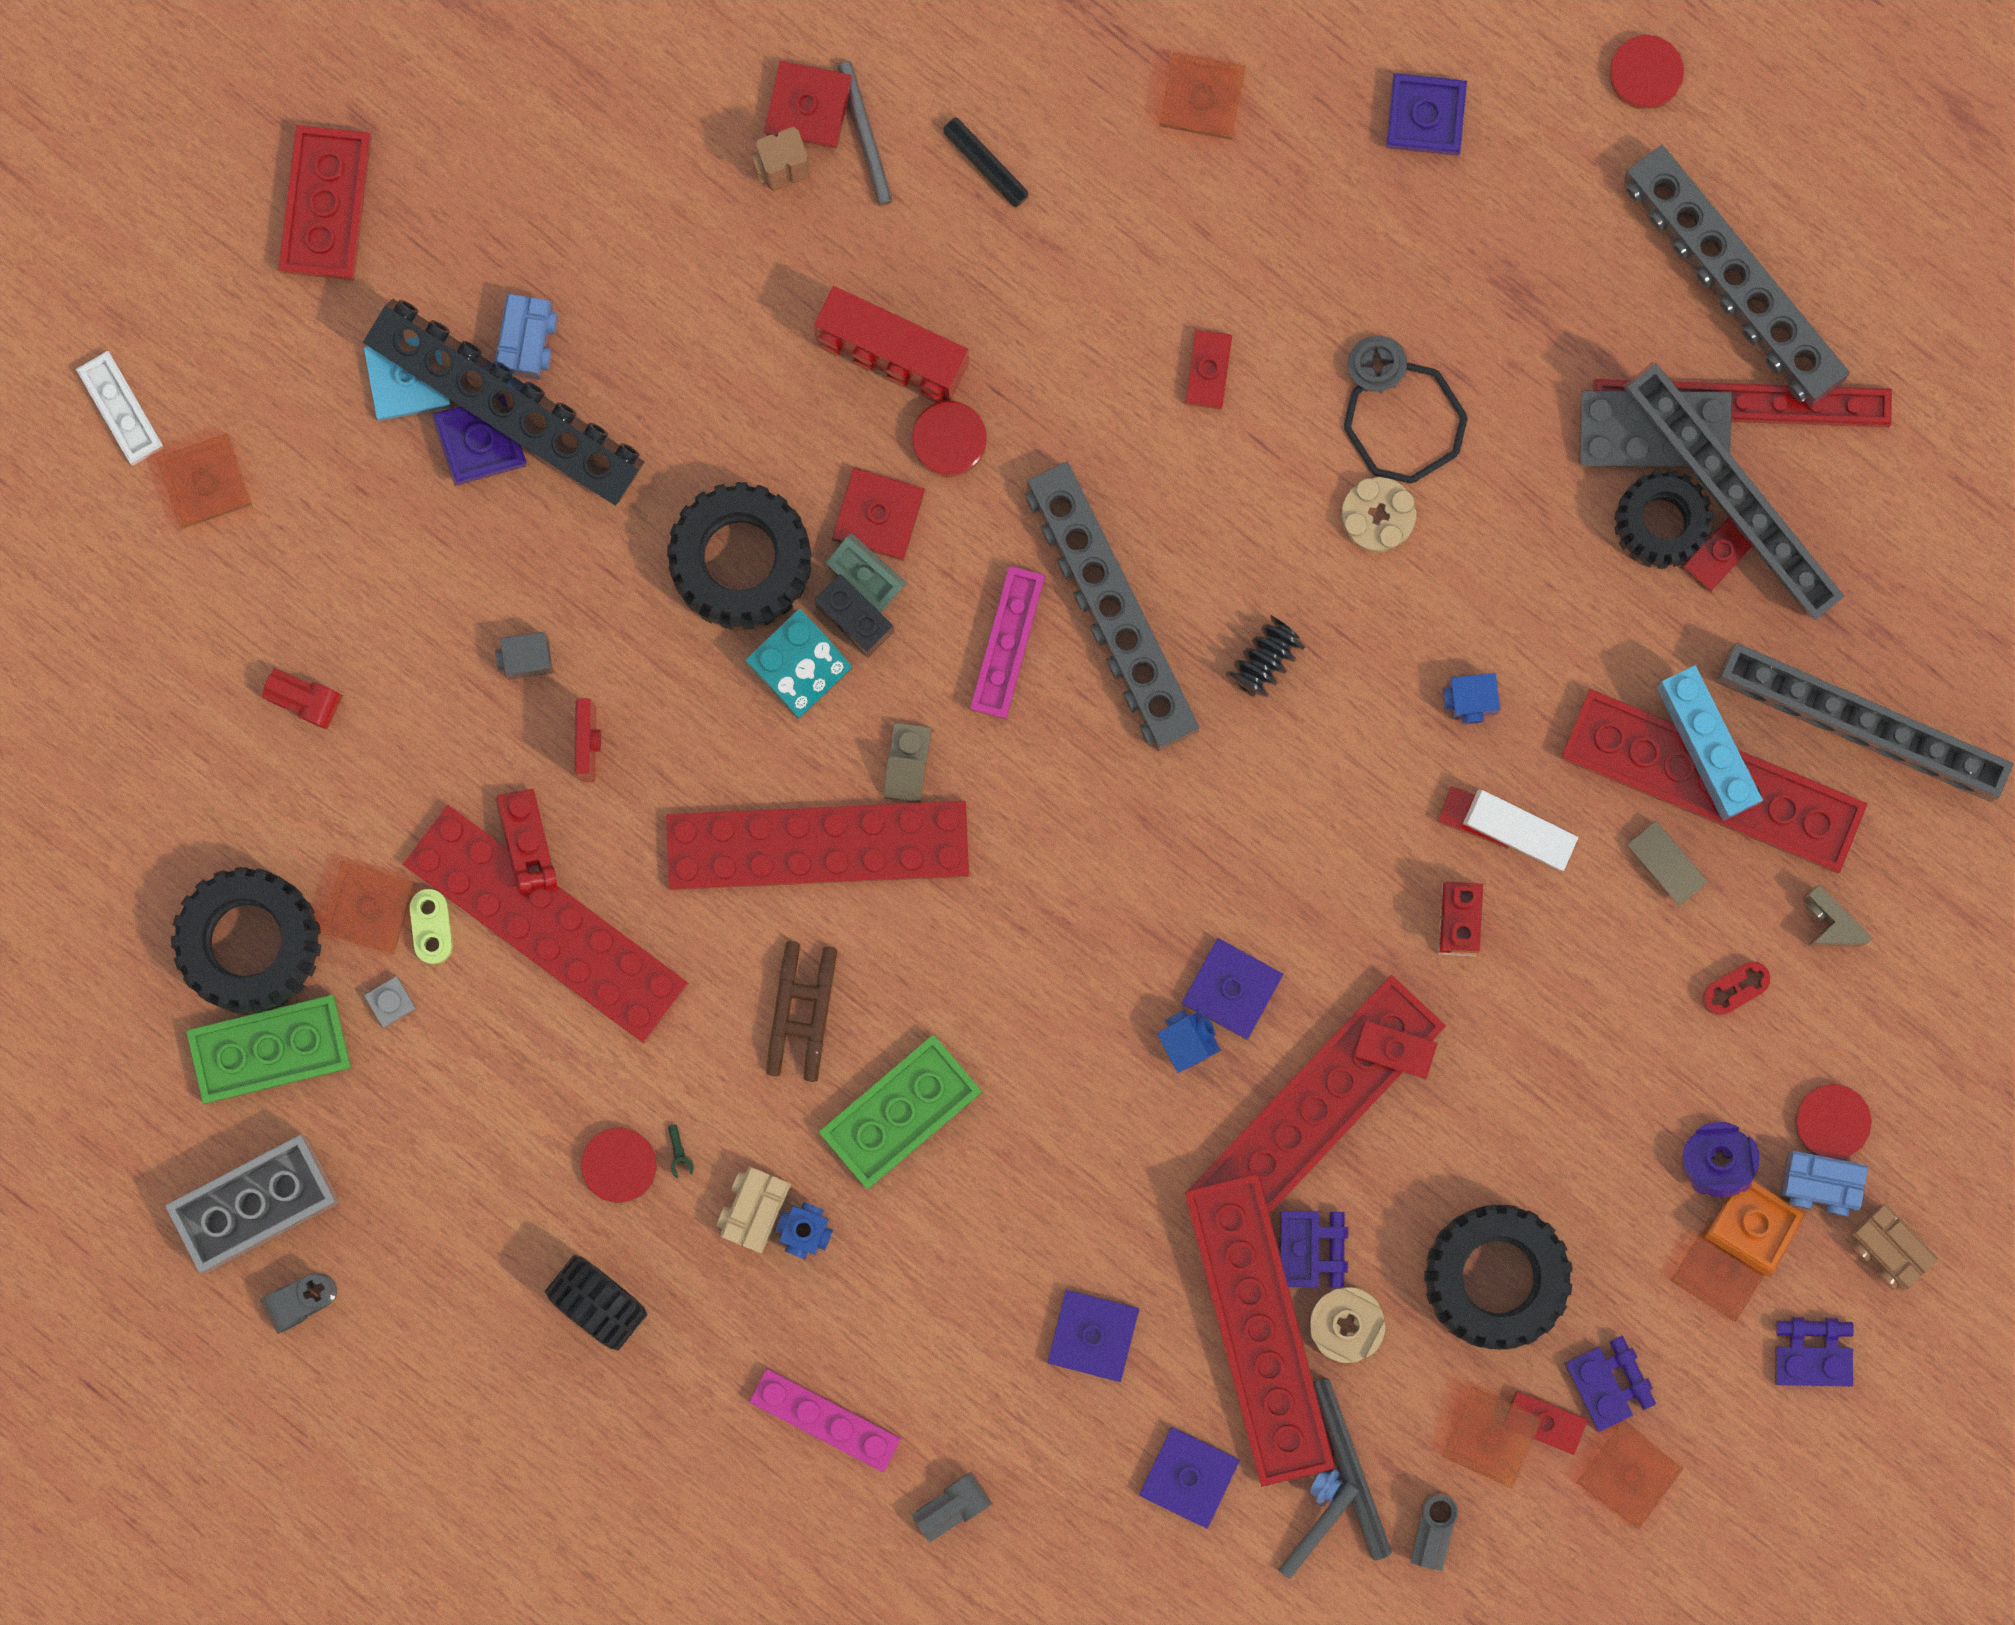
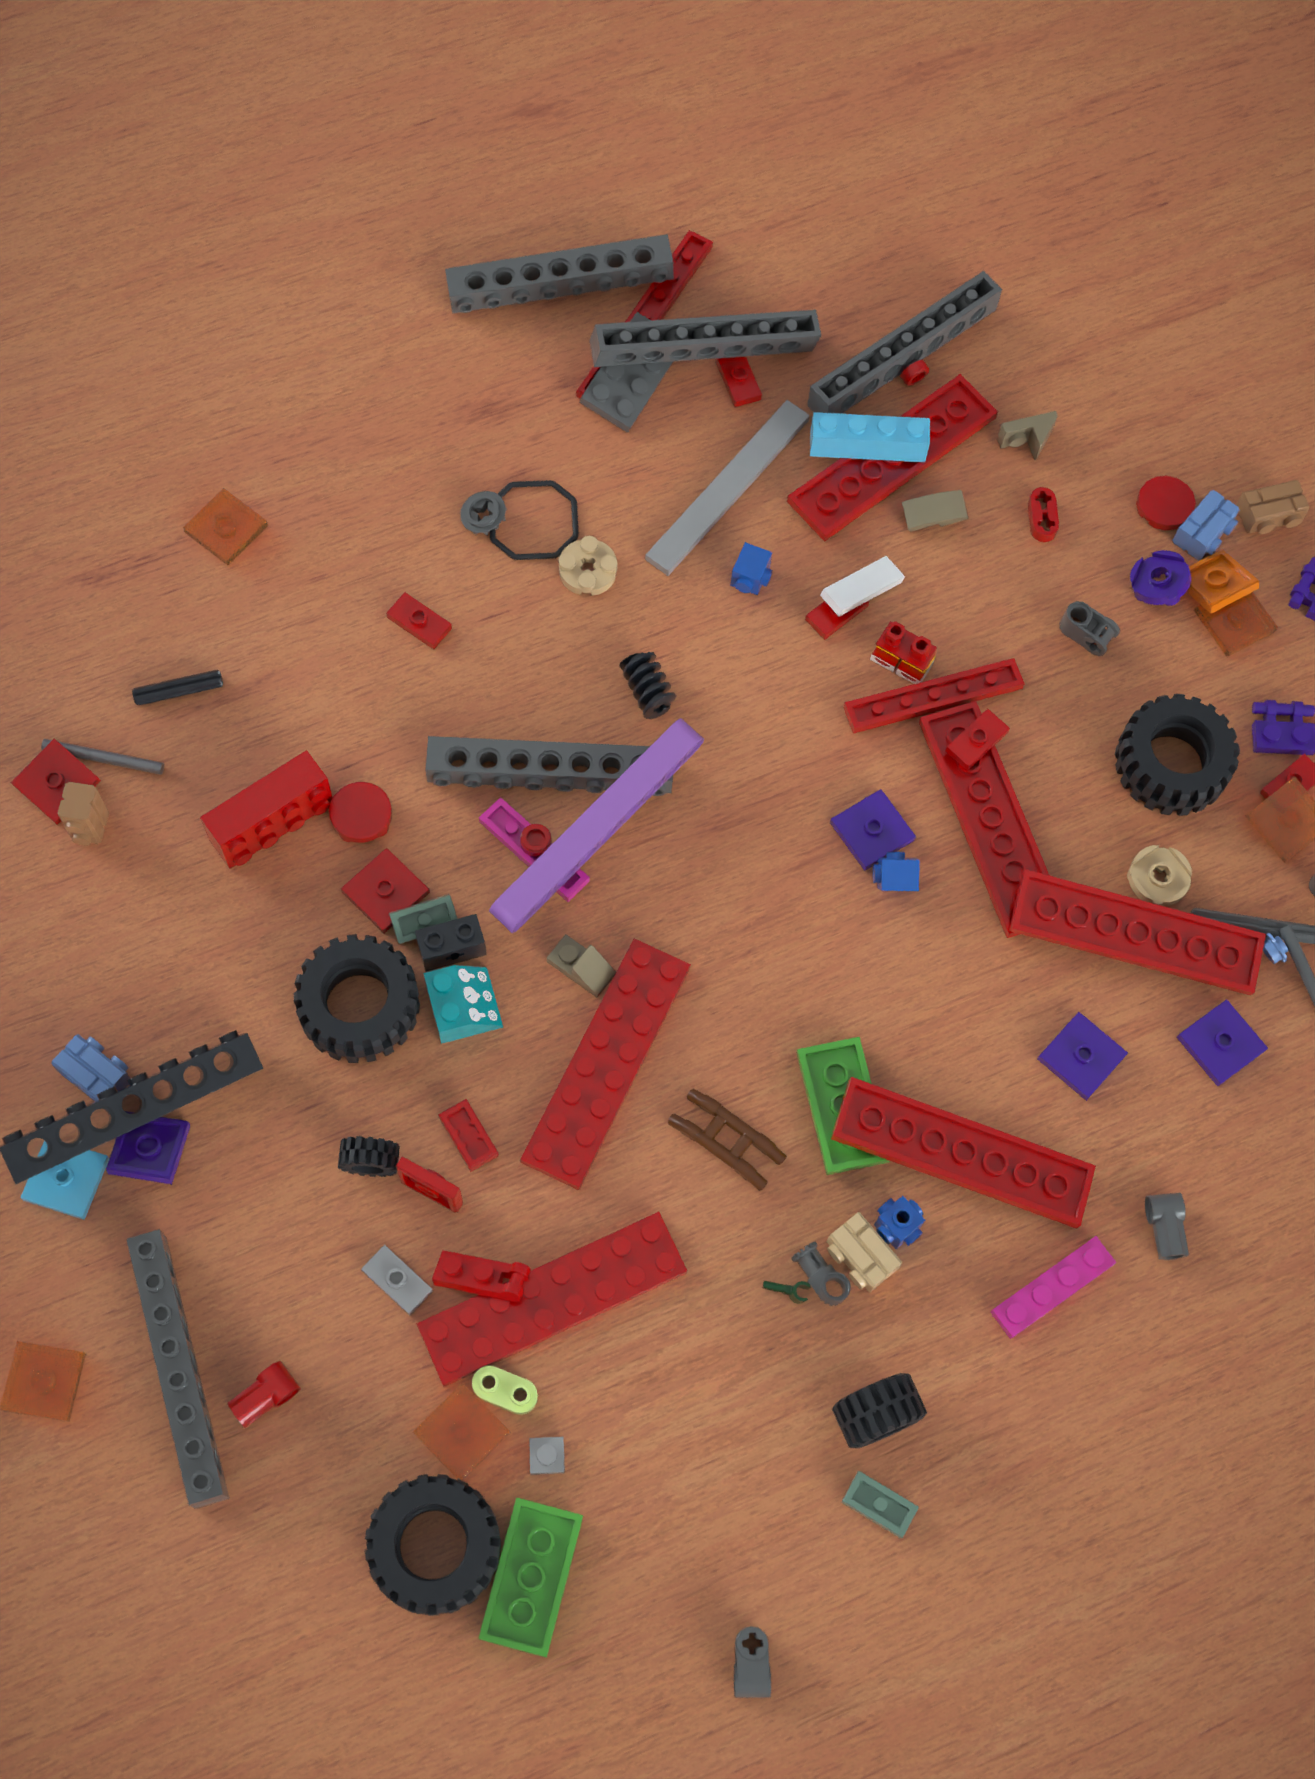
camera: 65 degrees left, 15 degrees down
(252, 1204) = (653, 1658): light grey brick -> none
(282, 600) = (177, 1370): none -> dark grey brick
(481, 761) = (397, 1280): none -> light grey plate
(512, 1350) = (880, 1504): none -> sand green plate
(524, 656) = (335, 1200): dark grey brick -> none
(582, 663) = (368, 1156): none -> black tyre
(618, 1165) = (773, 1341): red tile -> none
(663, 748) = (468, 1135): none -> red plate
(710, 1179) = (820, 1273): none -> dark grey connector
(912, 1260) = (964, 1152): none -> red plate
(1014, 639) = (535, 839): none -> red tile
(1062, 696) = (596, 825): none -> medium lavender beam
(1300, 1248) = (1084, 872): dark purple plate -> none
(1426, 114) = (331, 399): dark purple plate -> none
(1430, 976) = (933, 695): none -> red plate
(1570, 615) = (727, 488): none -> light grey tile
(1611, 1111) = (1089, 629): none -> dark grey piece
(1646, 72) = (389, 262): red tile -> none
(1685, 497) = (703, 376): black tyre -> none
(1841, 751) = (915, 373): none -> red tile

